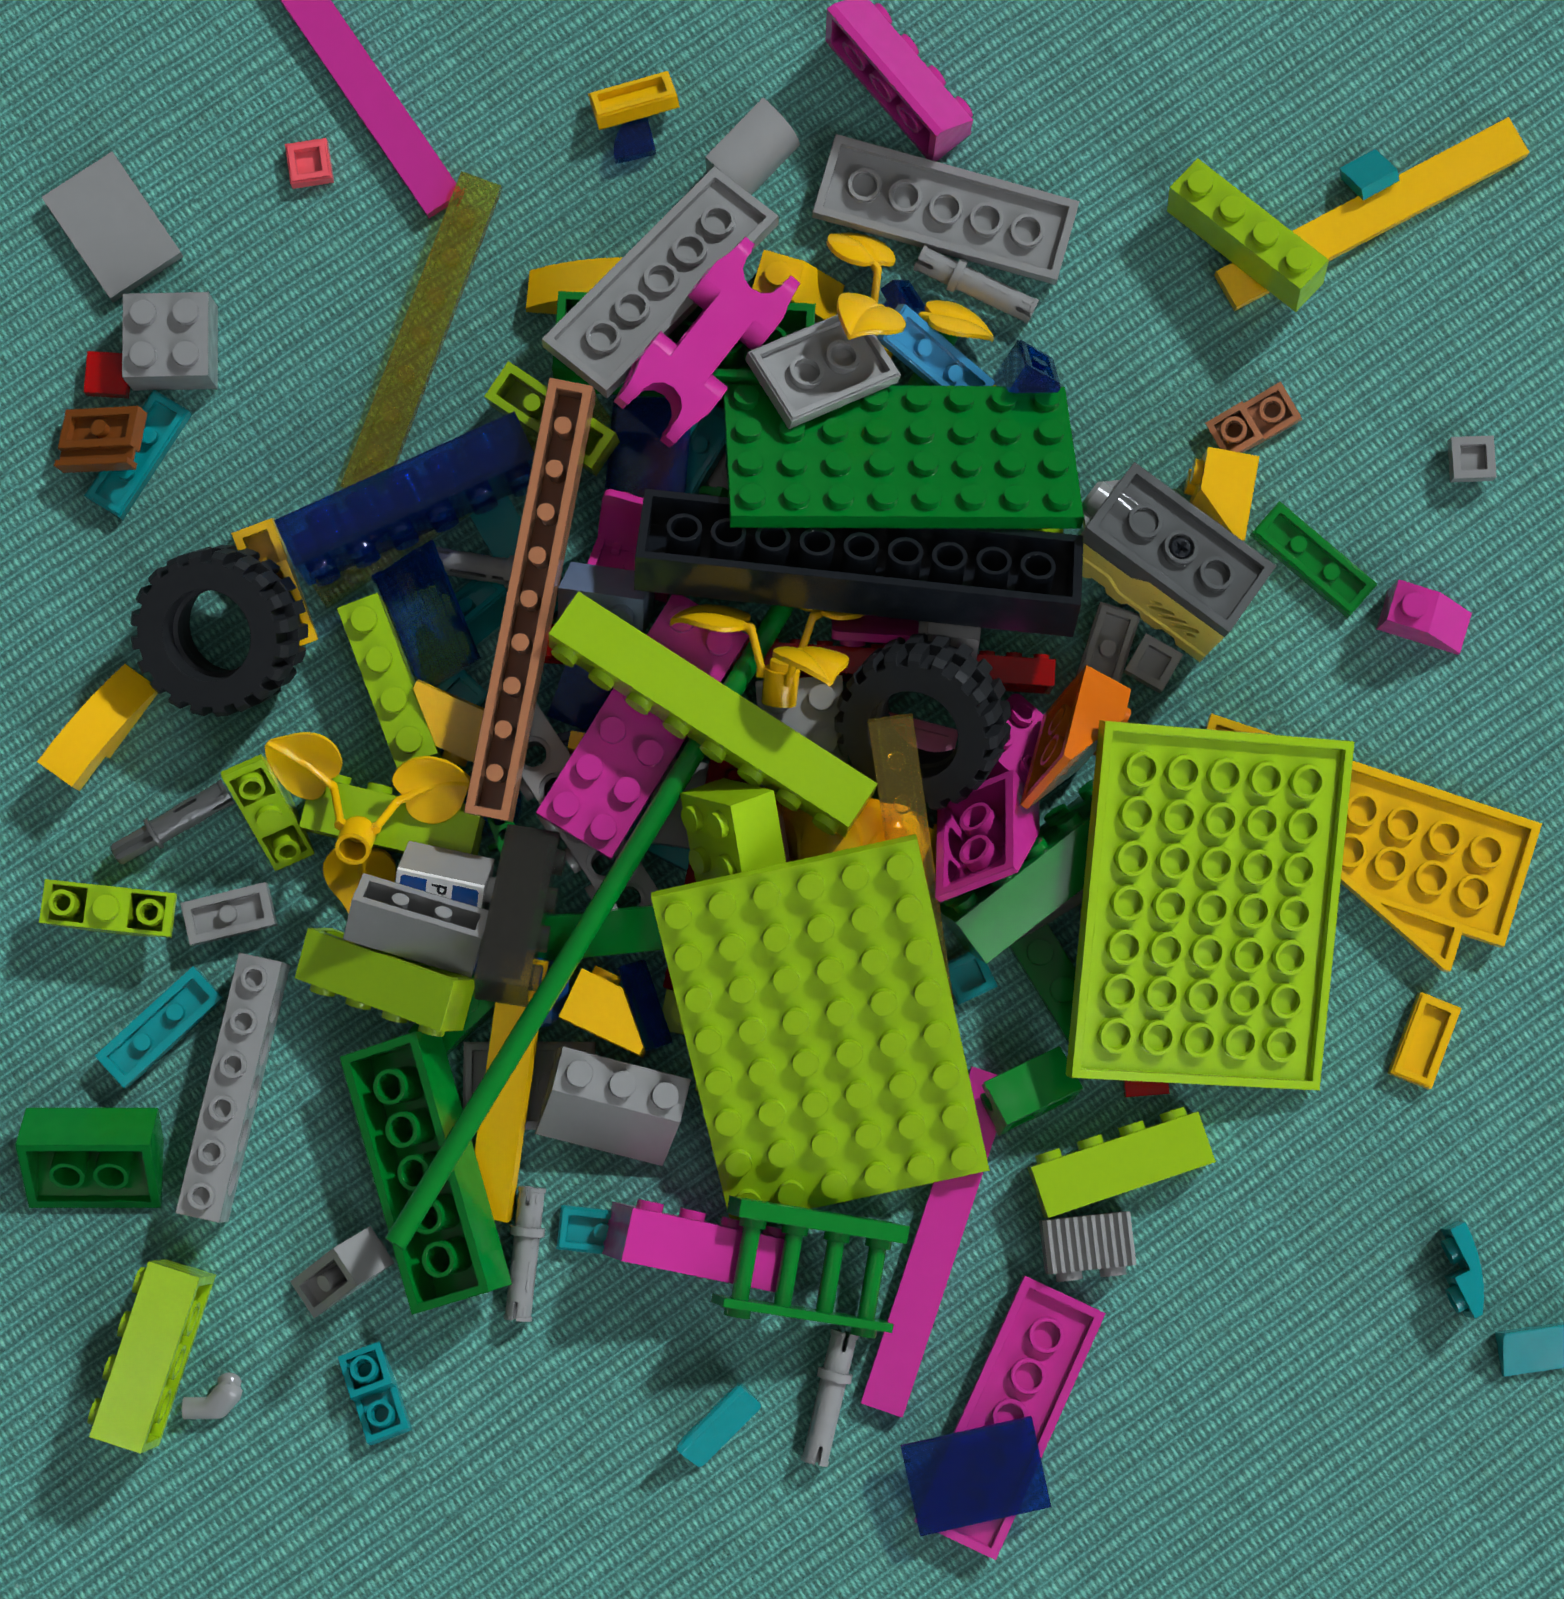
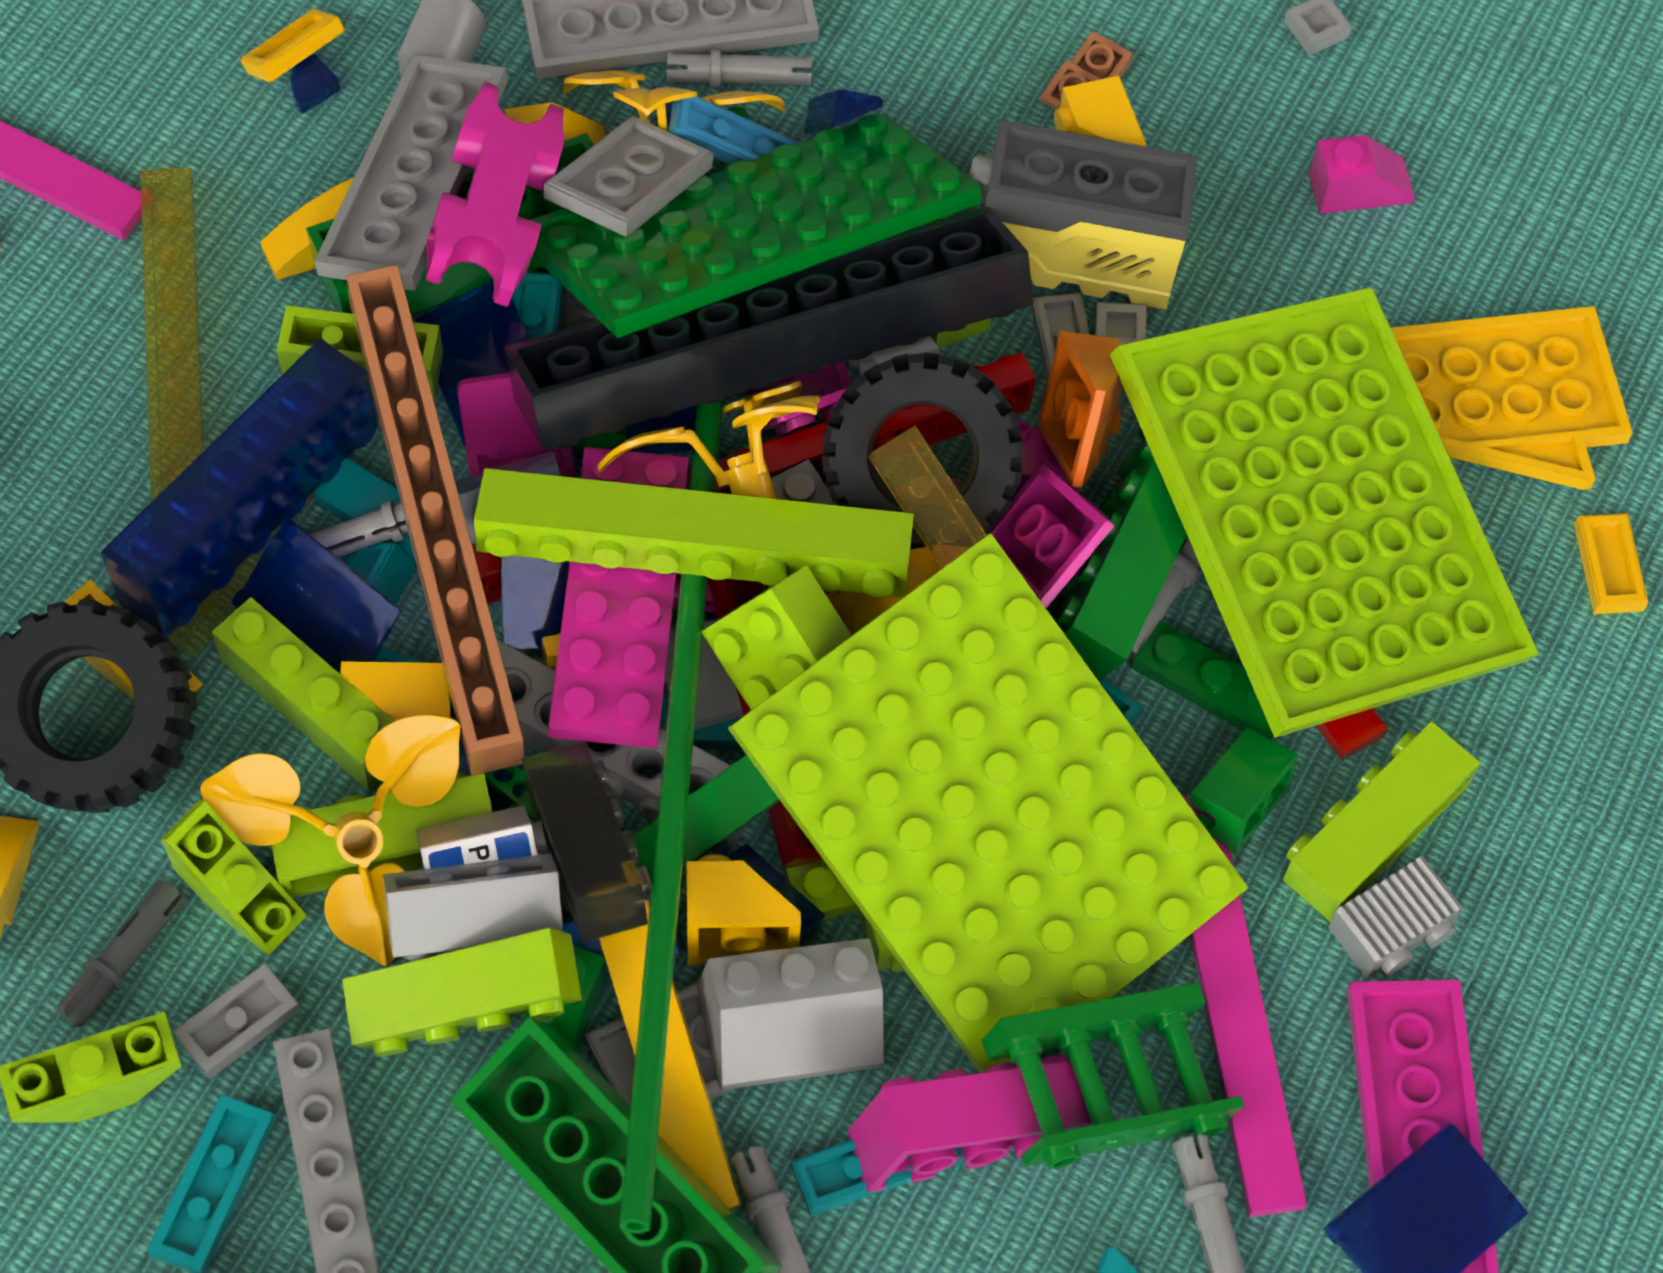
camera: 30 degrees left, 20 degrees down
(1313, 559) = (1236, 177): green tile -> none

